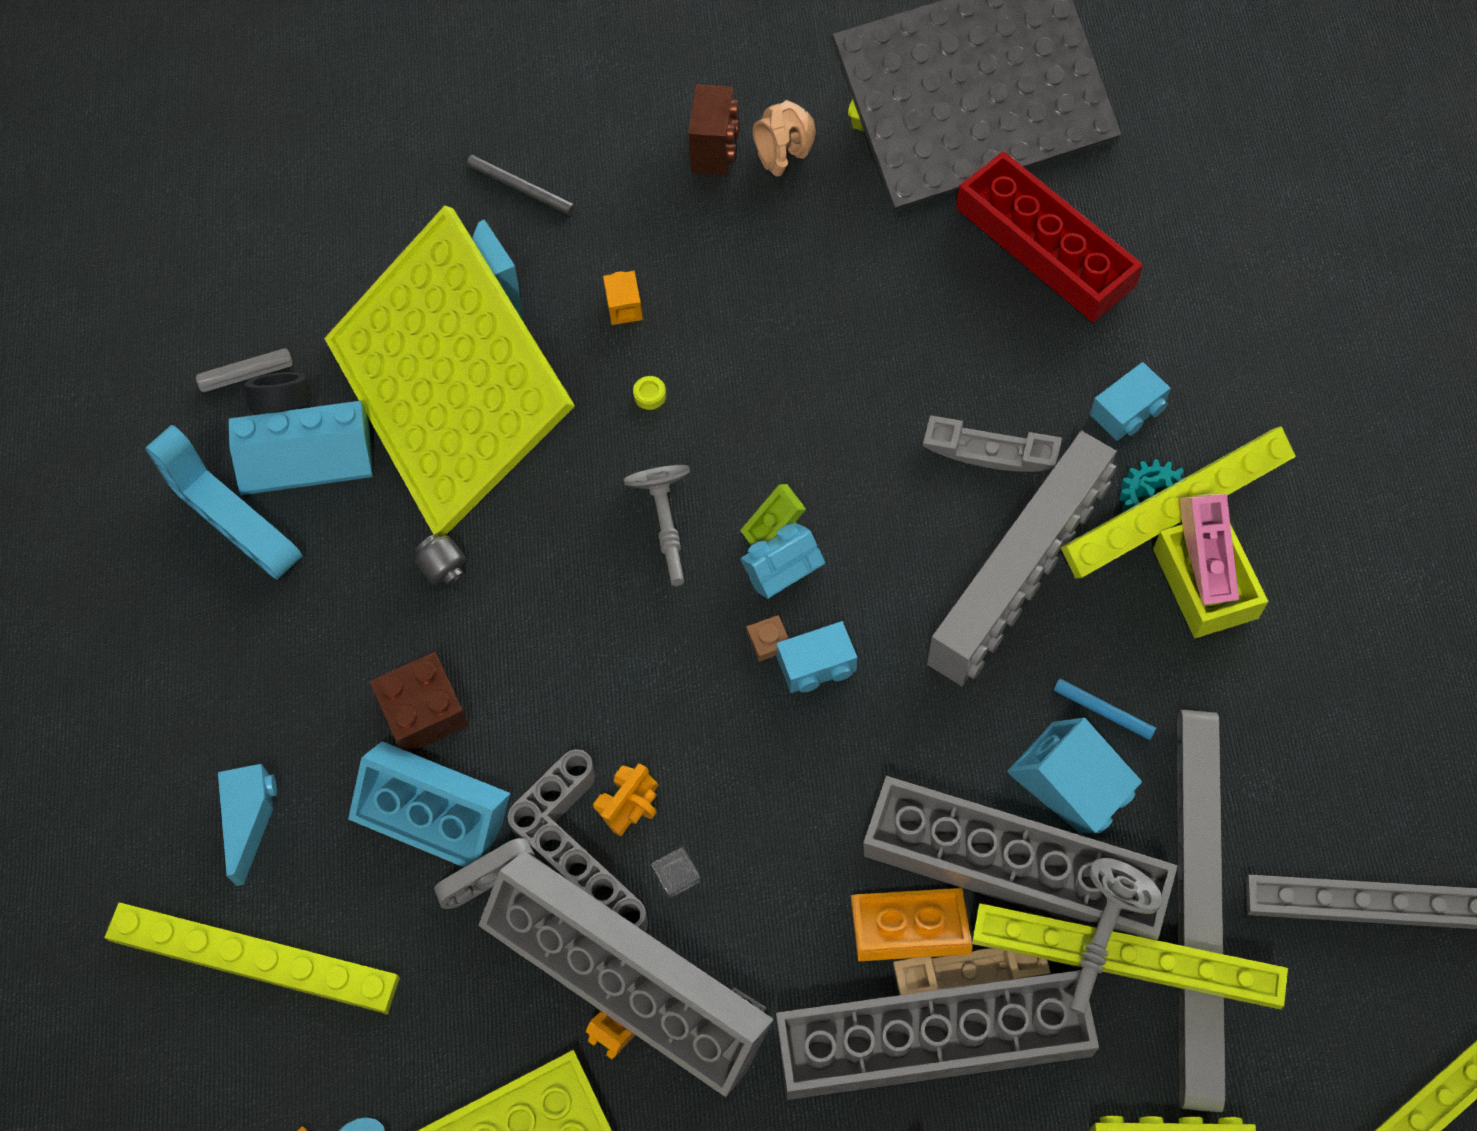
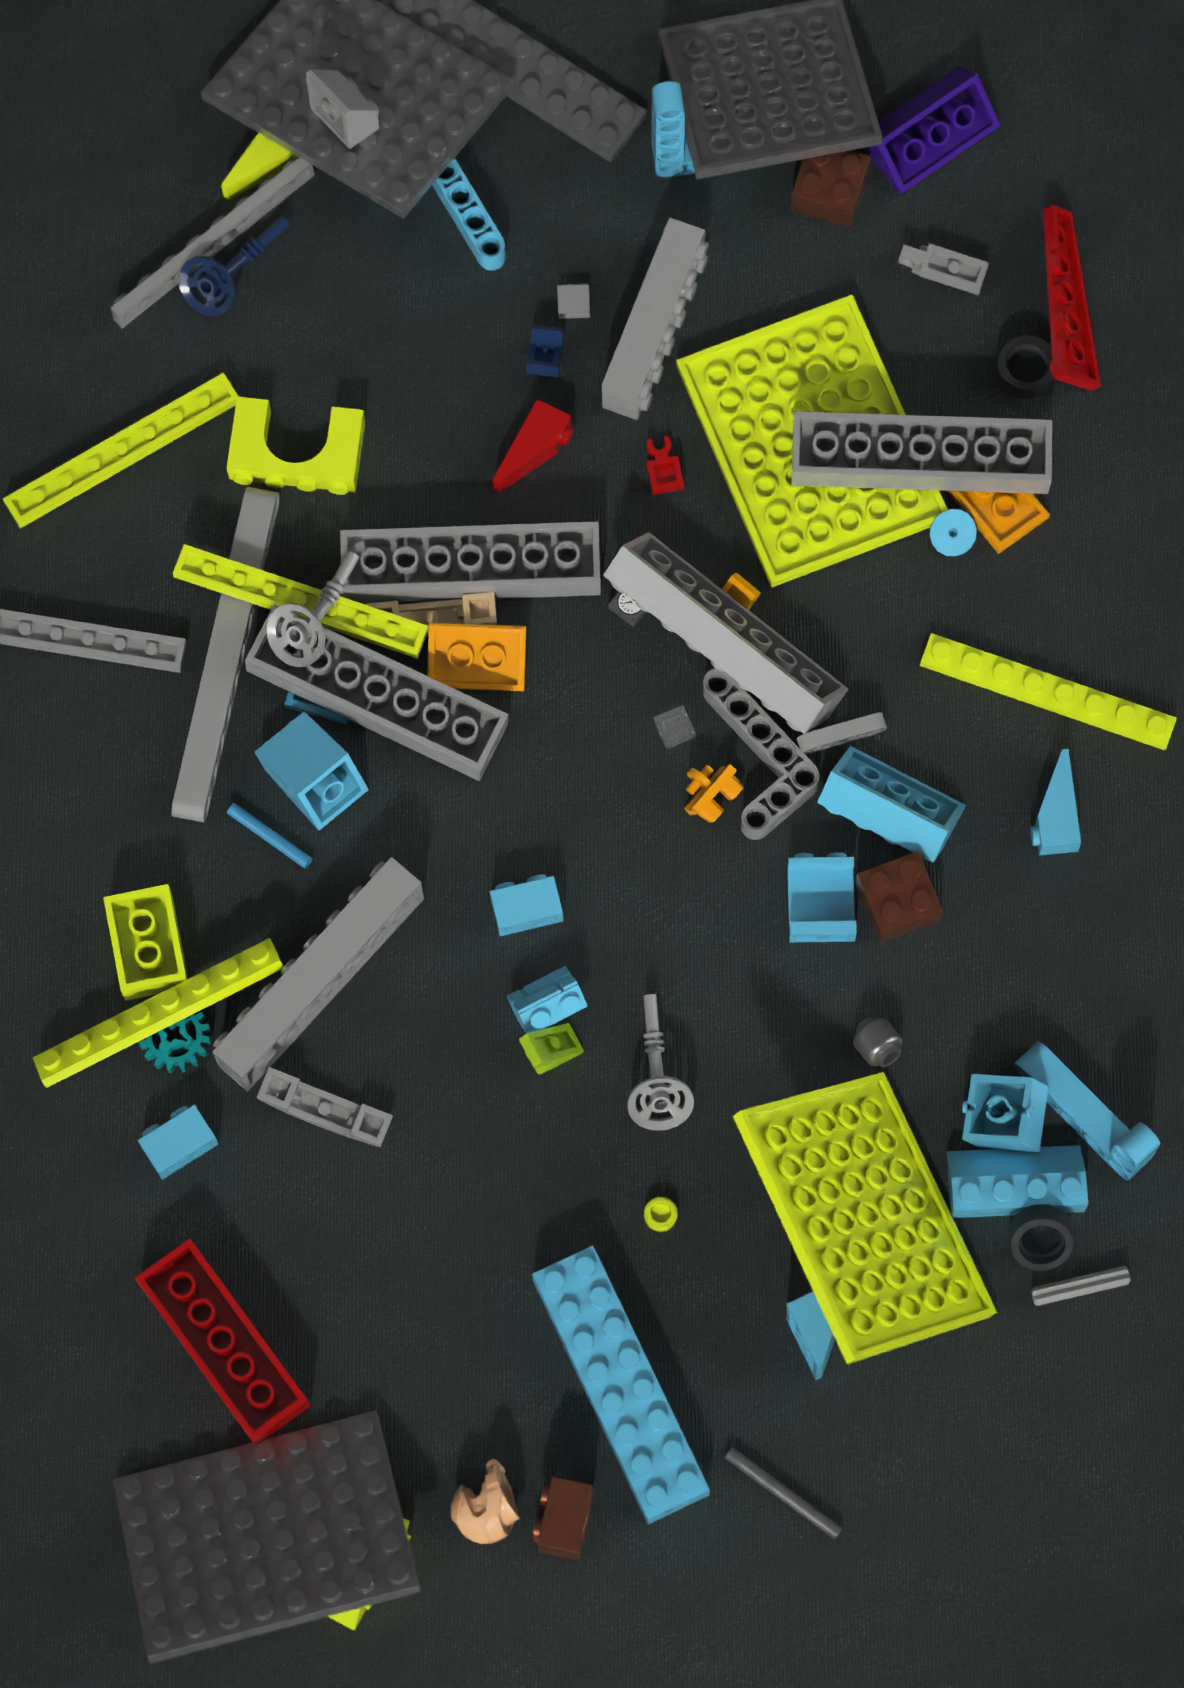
camera: 175 degrees left, 10 degrees up
(308, 495) = (1005, 1112): none -> medium azure brick
(503, 696) = (821, 898): none -> medium azure panel
(623, 297) = (680, 1325): light orange brick -> none
(675, 245) = (620, 1385): none -> medium azure brick
(765, 636) = (568, 936): medium nougat plate -> none
(1210, 546) = (146, 947): bright pink slope -> none

